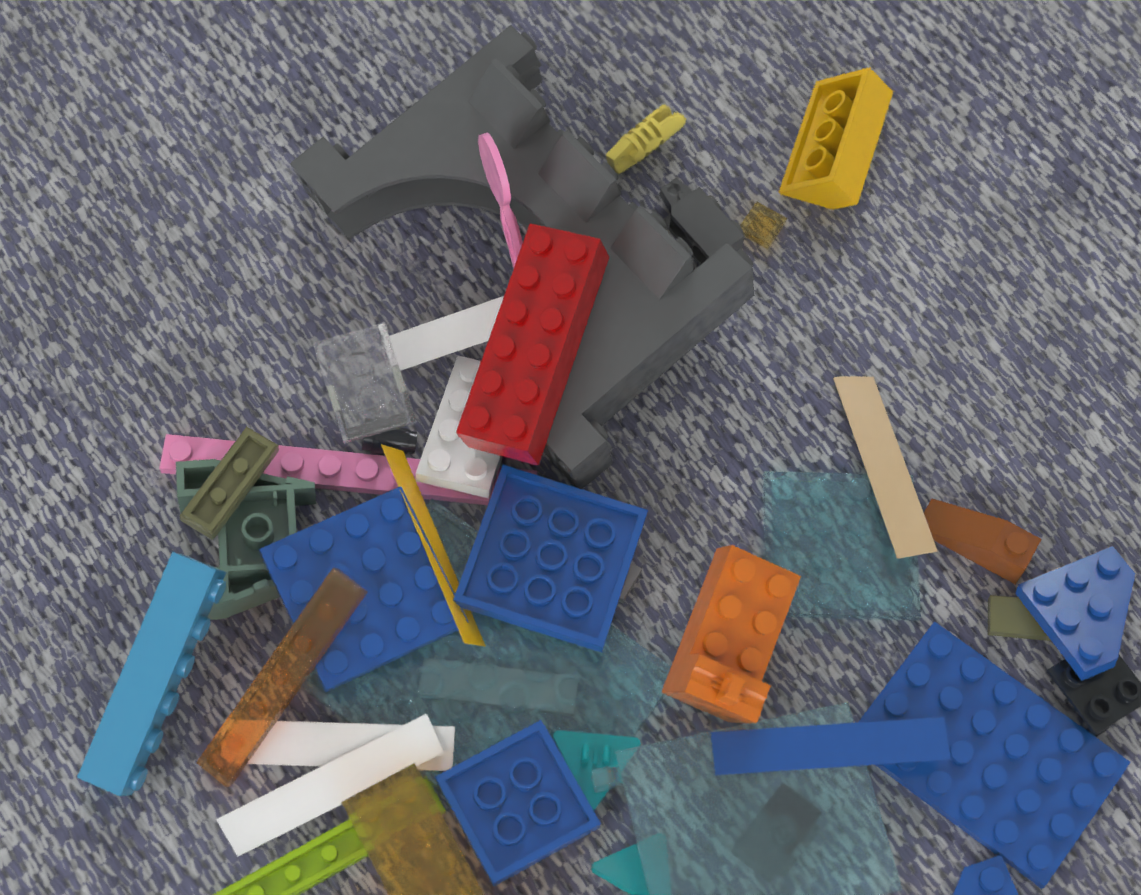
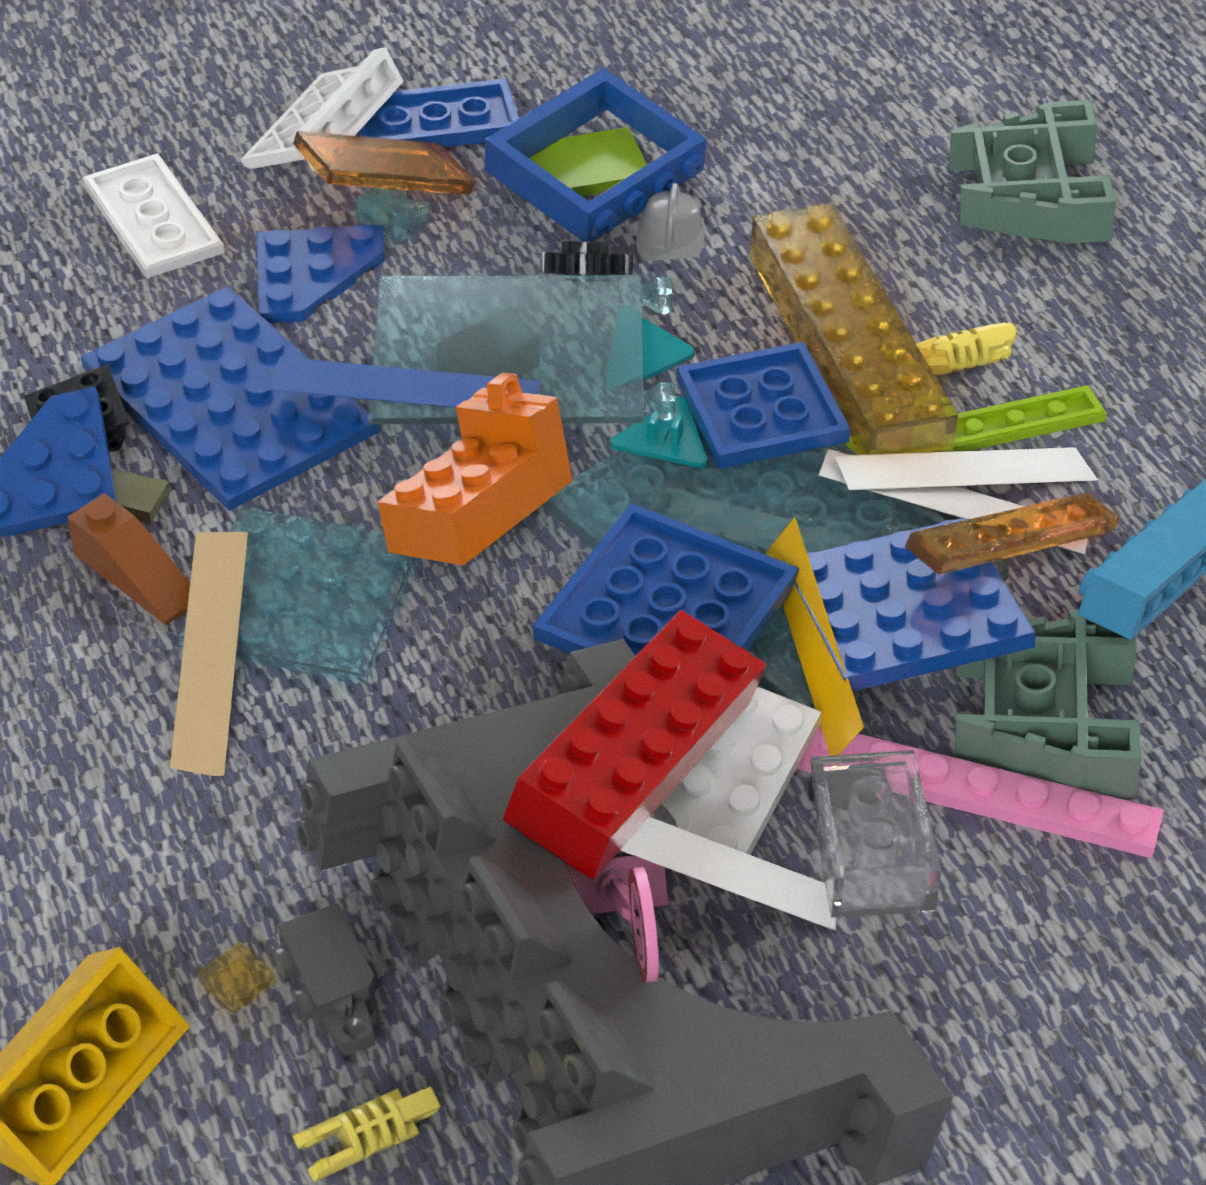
camera: 165 degrees left, 20 degrees down
(229, 483) = (1068, 720): olive tile -> none

